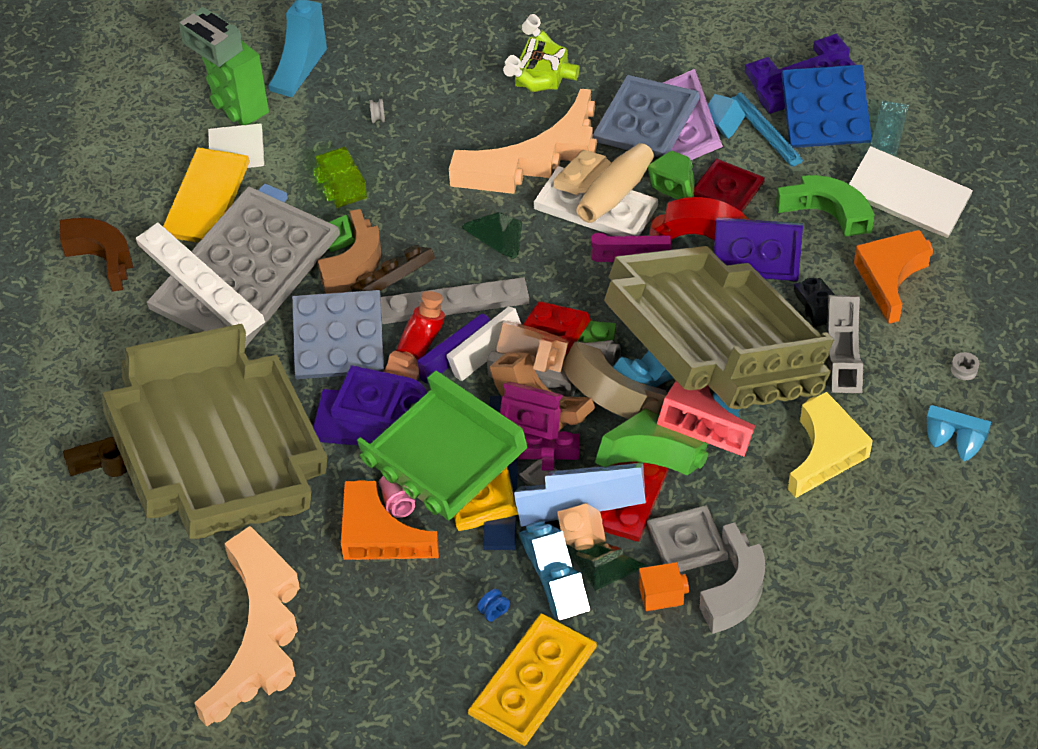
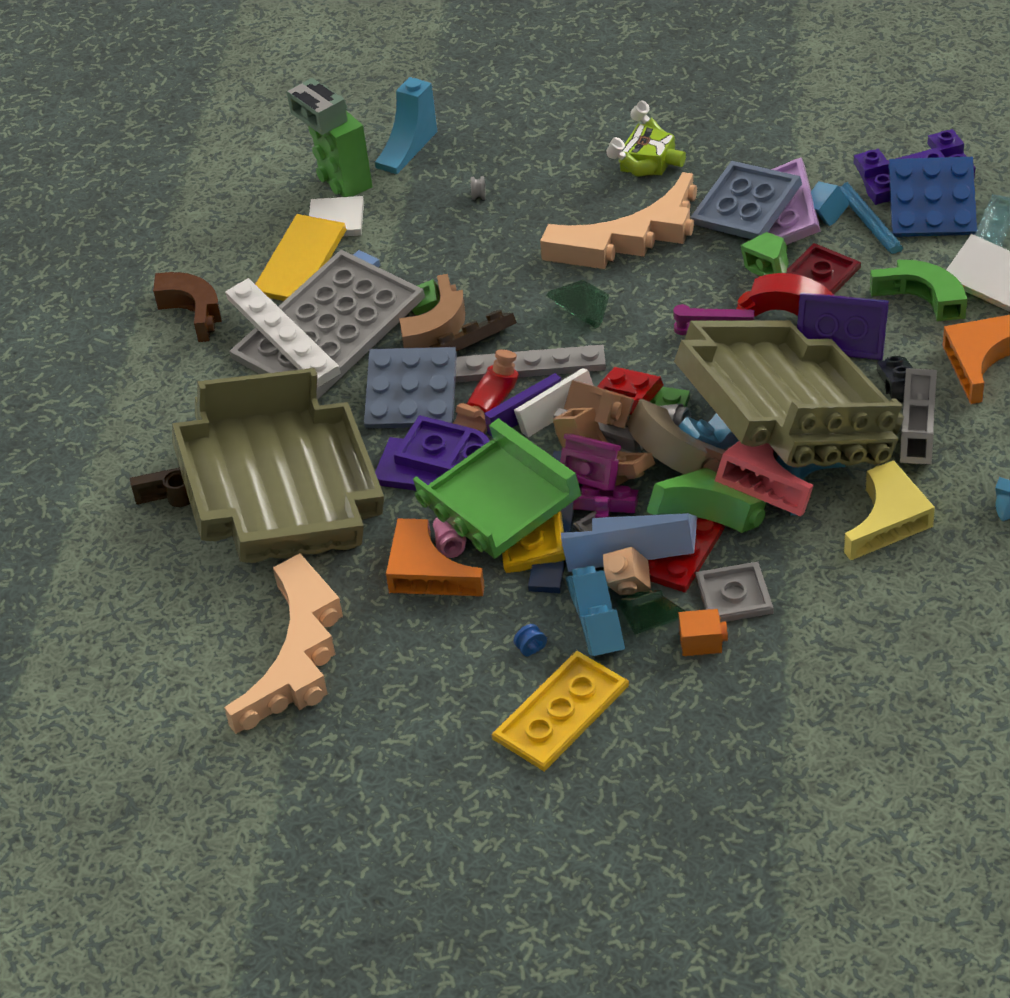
camera: 10 degrees right, 5 degrees down
(340, 177) = (432, 246): clear neon green piece -> none
(603, 181) = (692, 258): tan plate -> none
(624, 220) = (684, 279): white plate -> none
(737, 598) = (779, 645): light grey arch -> none

